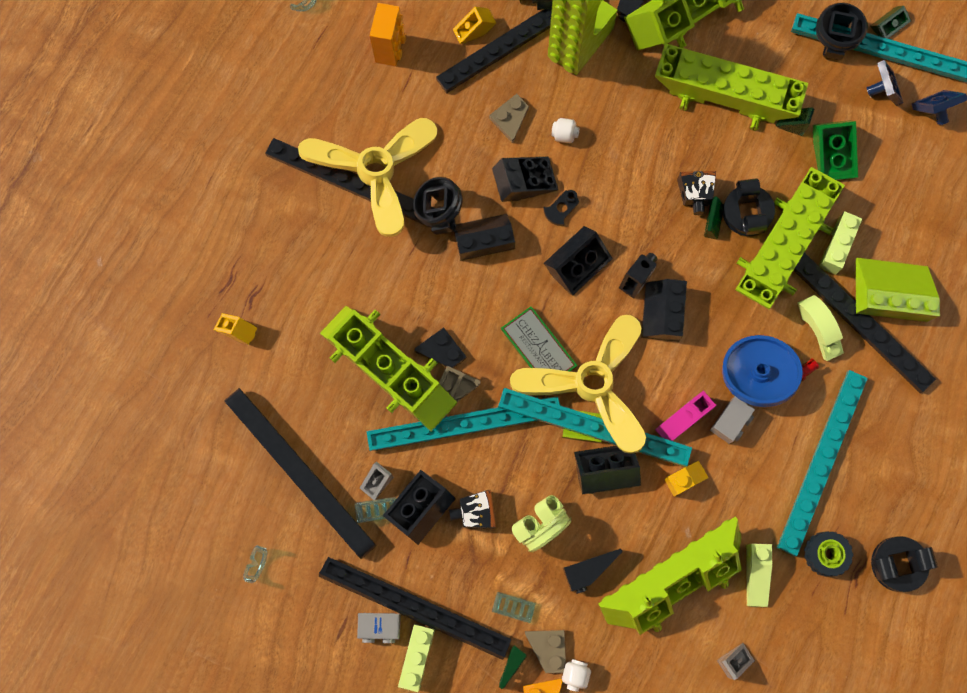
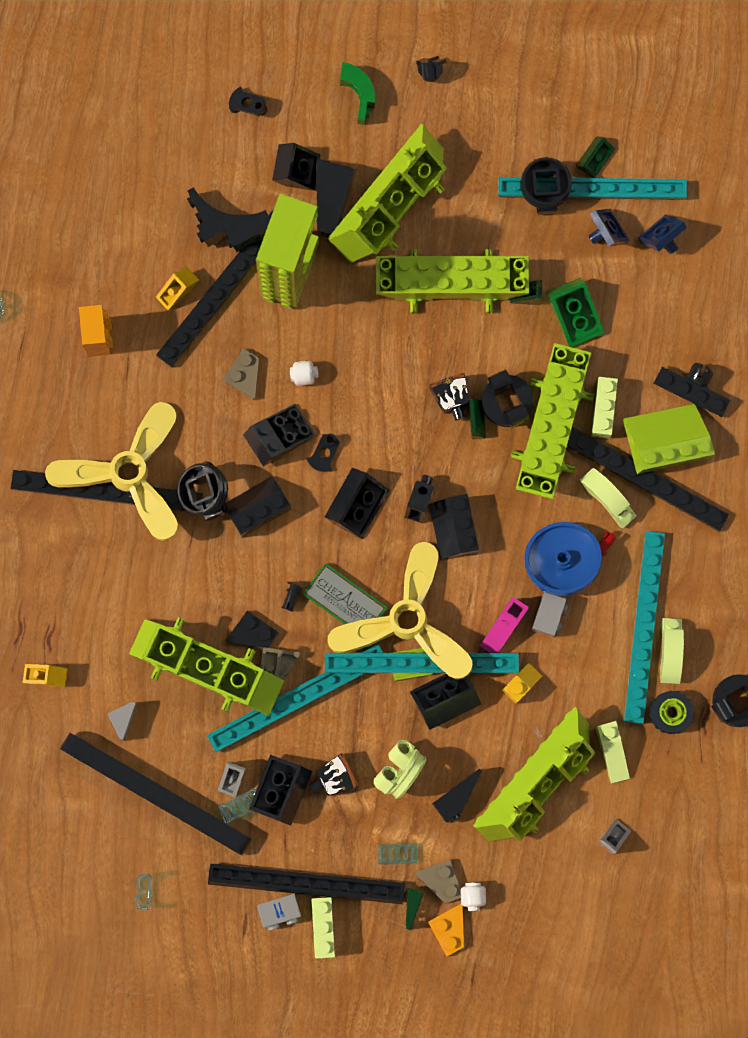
camera: 25 degrees left, 5 degrees up
(292, 390) = (122, 718): none -> light grey slope
(490, 326) = (292, 595): none -> black pin
(846, 493) = (672, 651): none -> yellowish green arch
(931, 251) = (693, 388): none -> black plate

